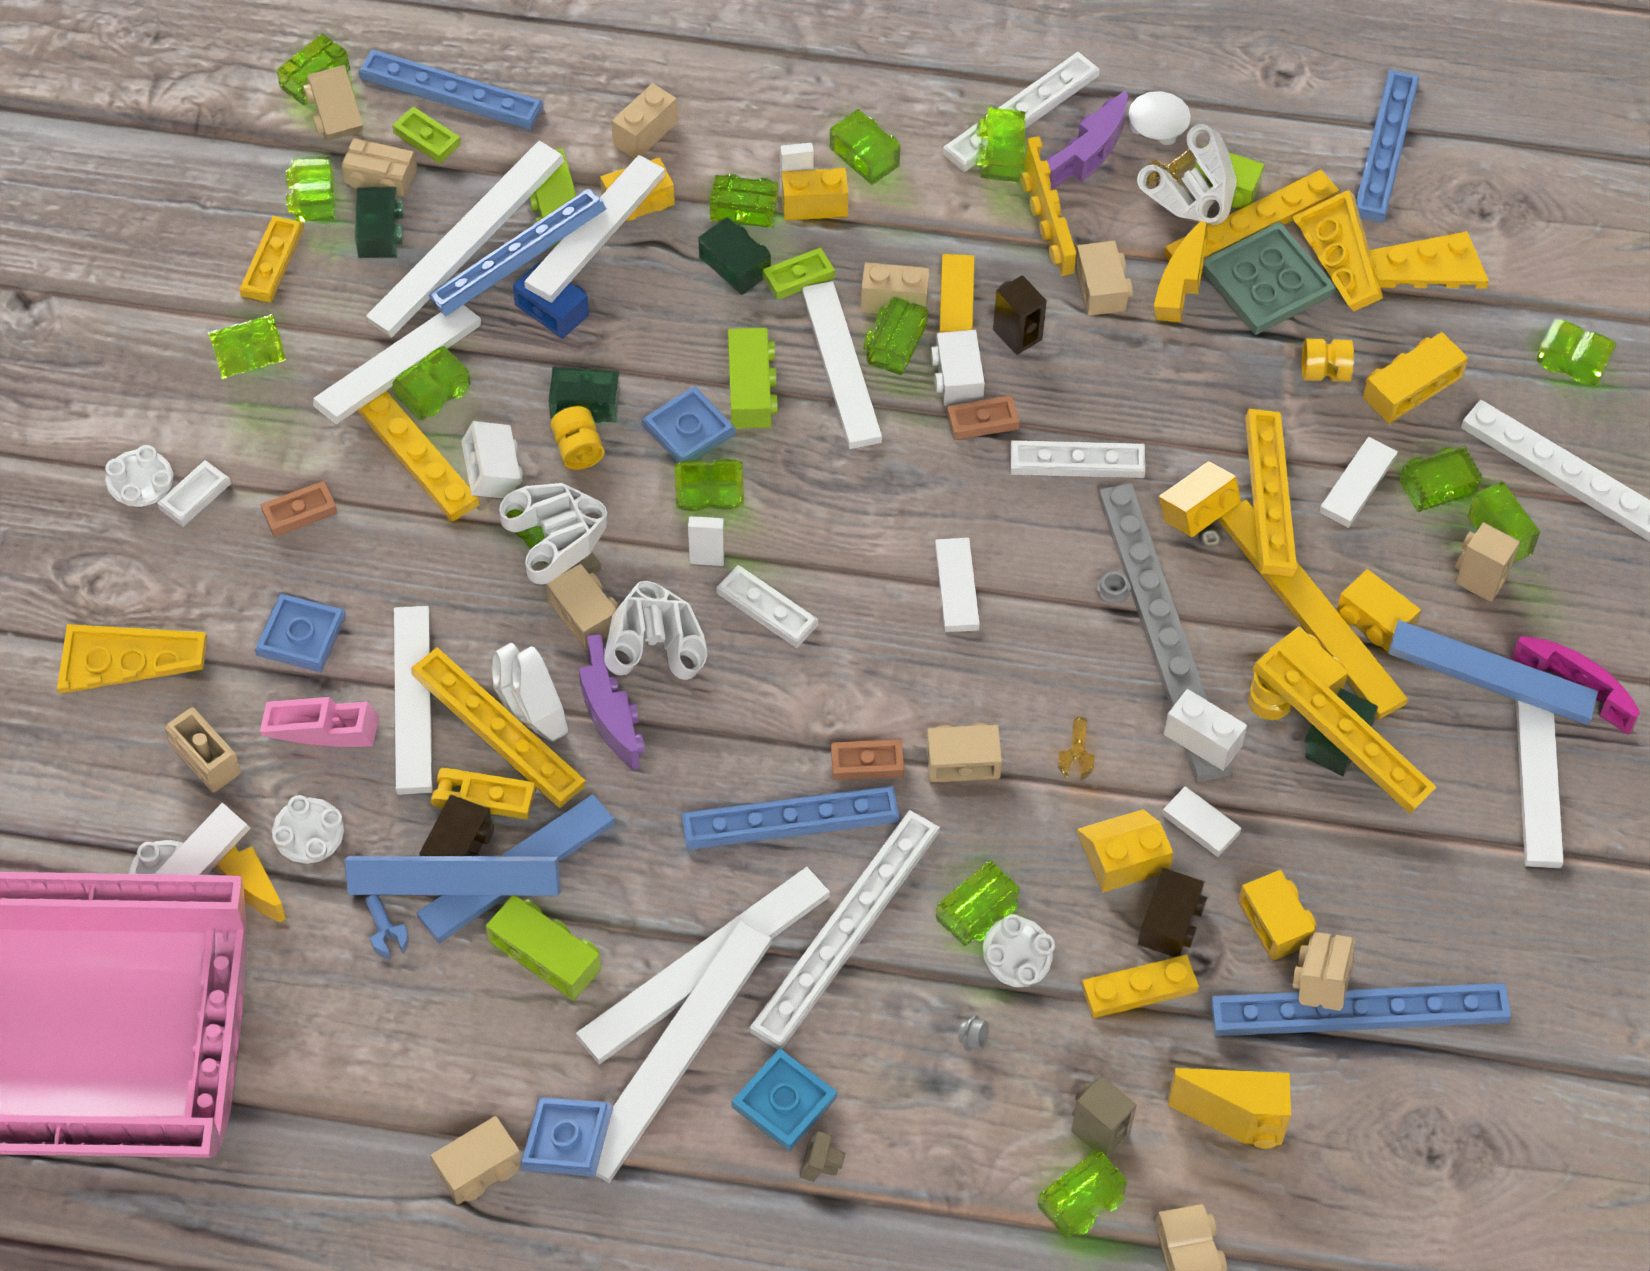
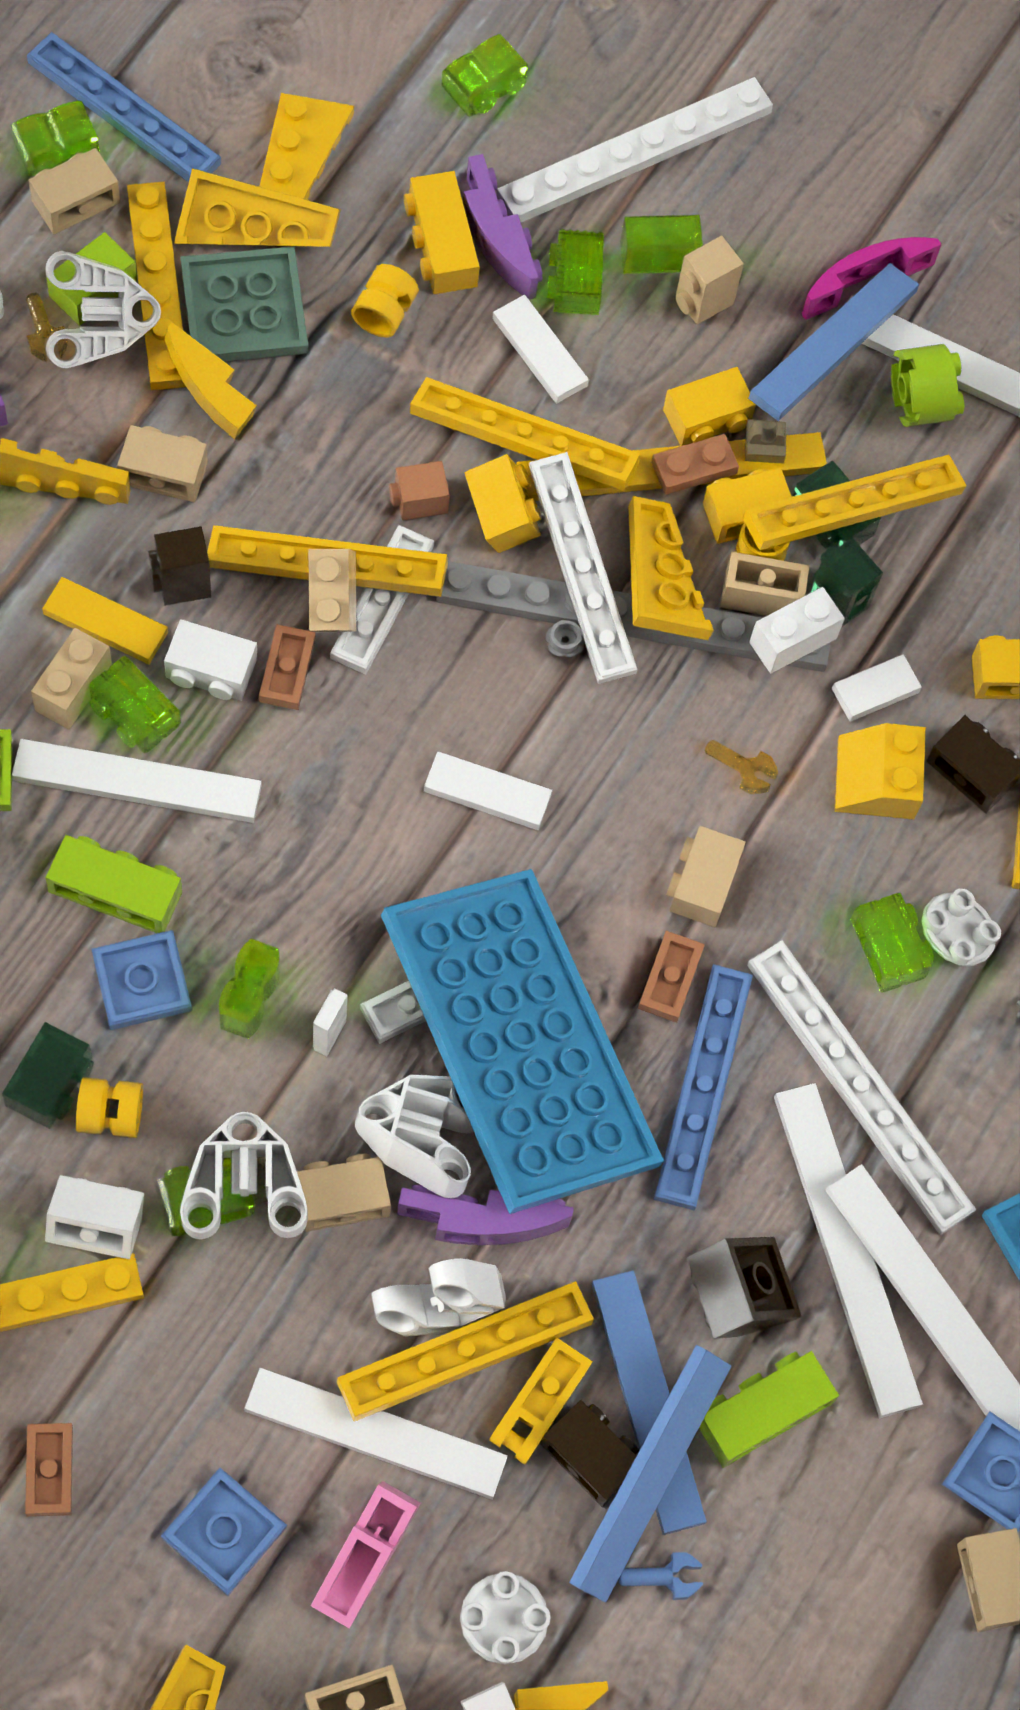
camera: 75 degrees left, 10 degrees up
(636, 898) = (743, 1286): none -> dark brown slope
(756, 669) = (521, 1040): none -> dark azure plate
(1051, 408) = (332, 590): none -> tan brick
(1082, 407) = (288, 557): none -> yellow plate
(1174, 568) = (583, 568): none -> white tile
(1180, 445) = (420, 490): none -> nougat brick
(1202, 625) = (660, 574): none -> yellow wing
(1235, 693) = (762, 584): none -> tan brick
(1272, 753) = (848, 578): none -> clear green brick
(1292, 139) = (74, 190): none -> tan brick
(1318, 617) = (695, 464): none -> nougat plate
(1329, 111) = (53, 136): none -> clear neon green brick
(1371, 658) = (765, 441): none -> dark tan tile
(1442, 406) = (496, 234): none -> medium lavender slope
(1494, 751) = (927, 385): none -> lime brick

